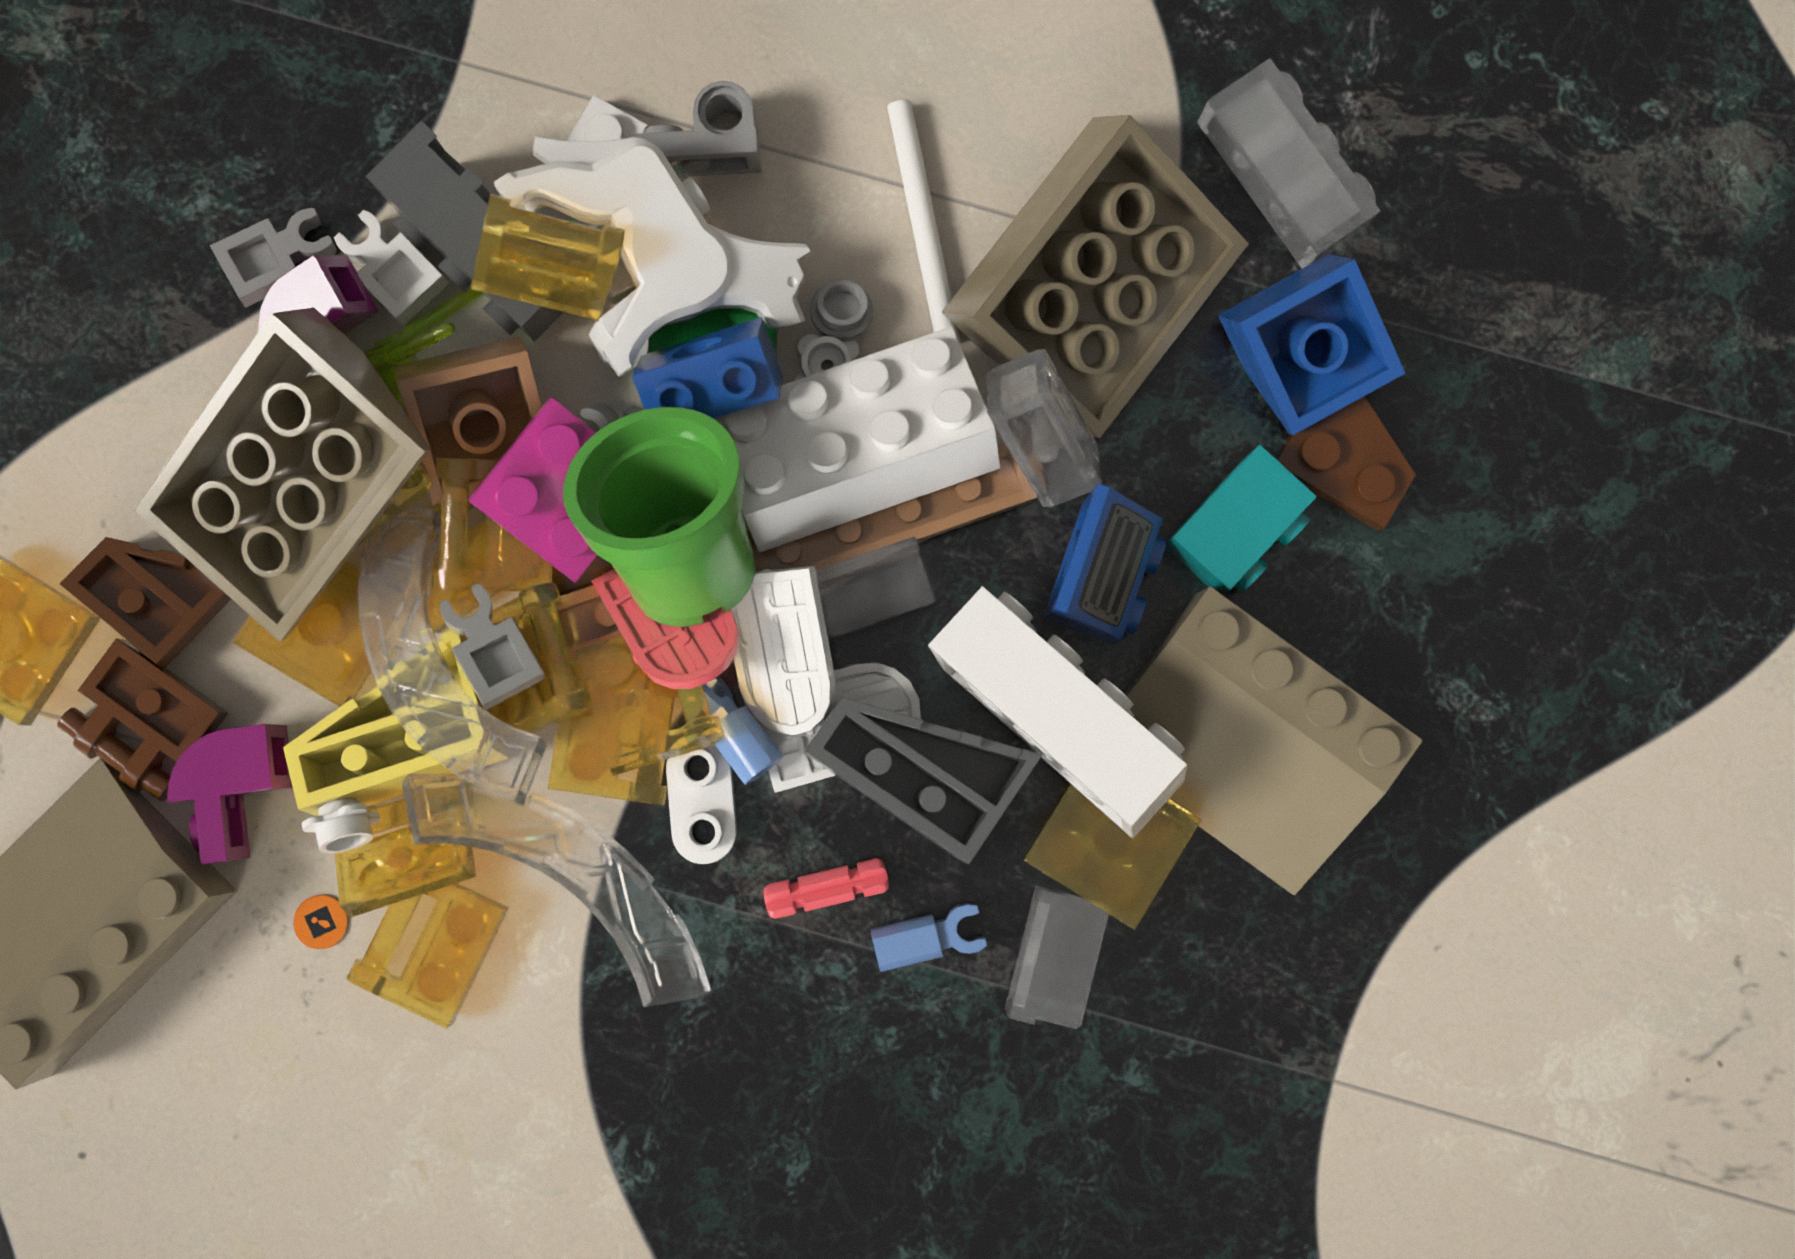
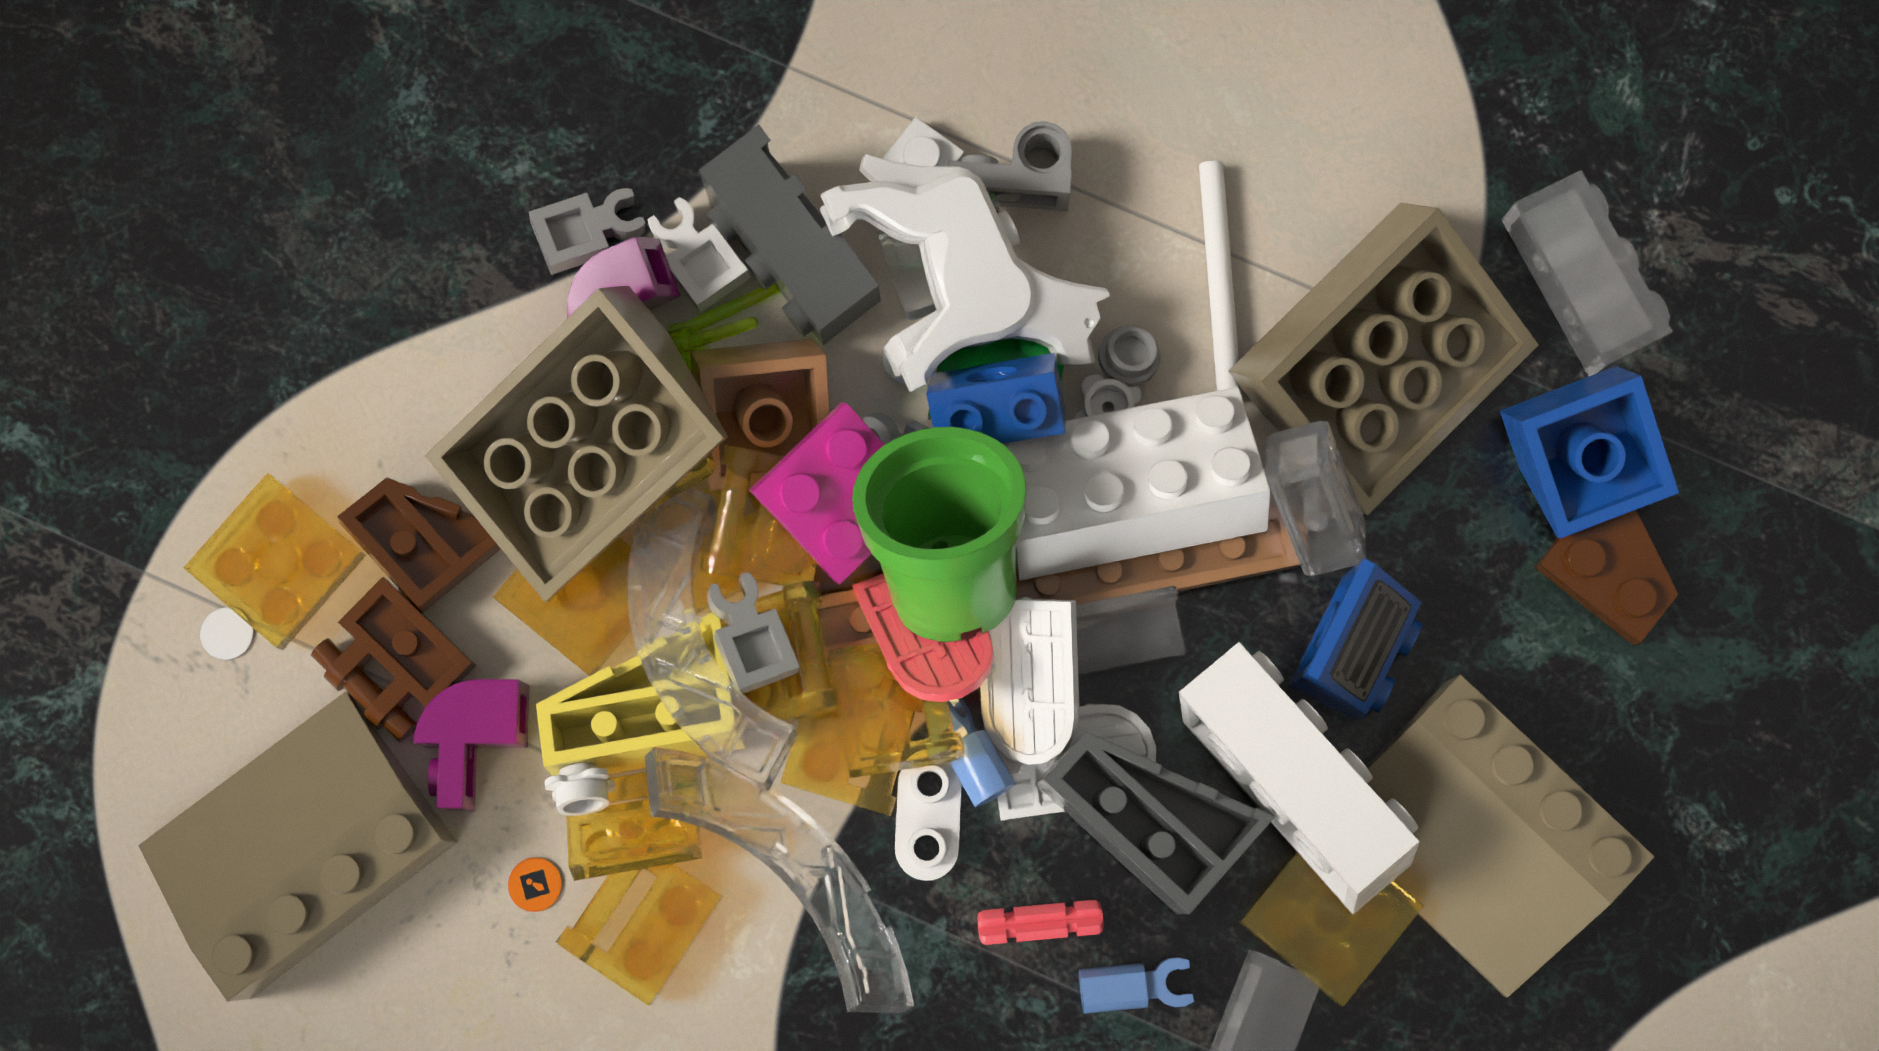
camera: 15 degrees right, 5 degrees down
(541, 273) = (853, 284): clear yellow plate -> none
(1241, 522) = (1498, 617): teal brick -> none

